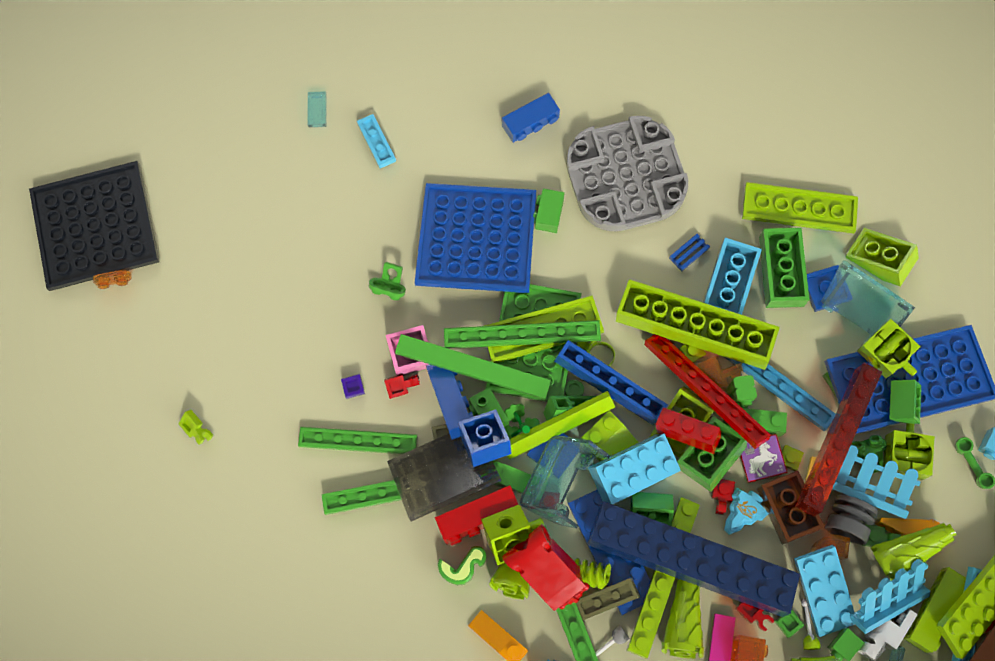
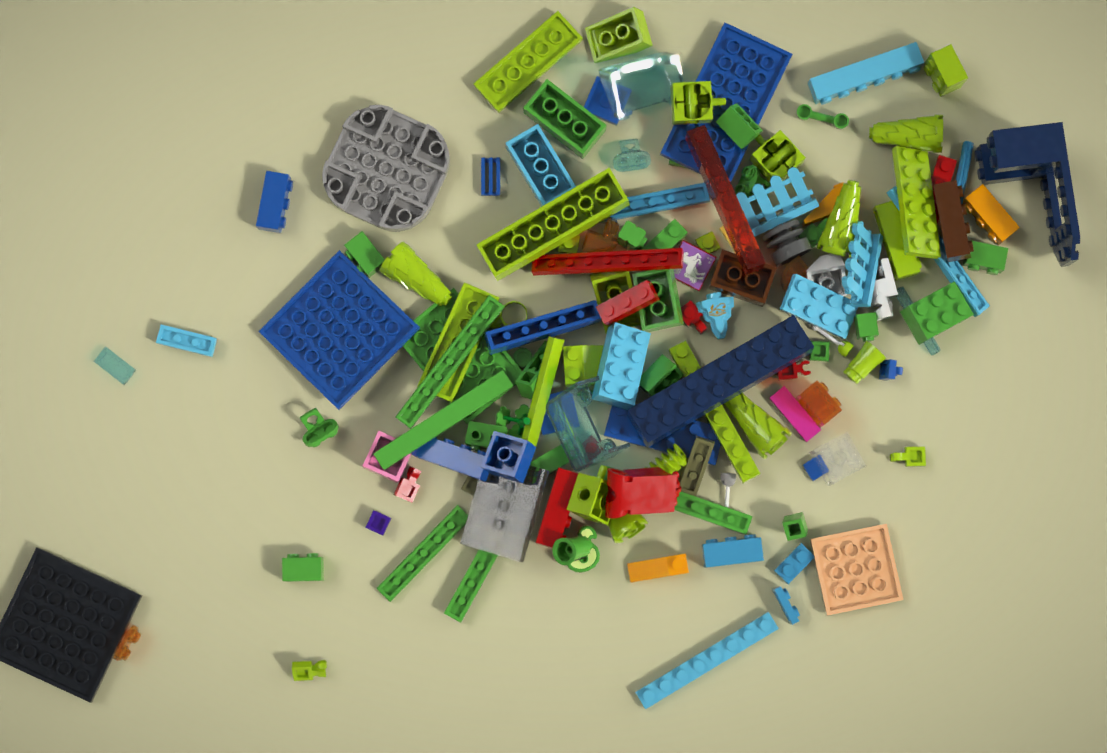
camera: 50 degrees left, 10 degrees up
(271, 359) = (303, 568): none -> bright green brick
(450, 549) = (570, 549): none -> bright green plant
(565, 254) = (414, 274): none -> lime cone
(801, 343) = (632, 158): none -> clear light blue bracket
(859, 575) = (828, 272): none -> white slope

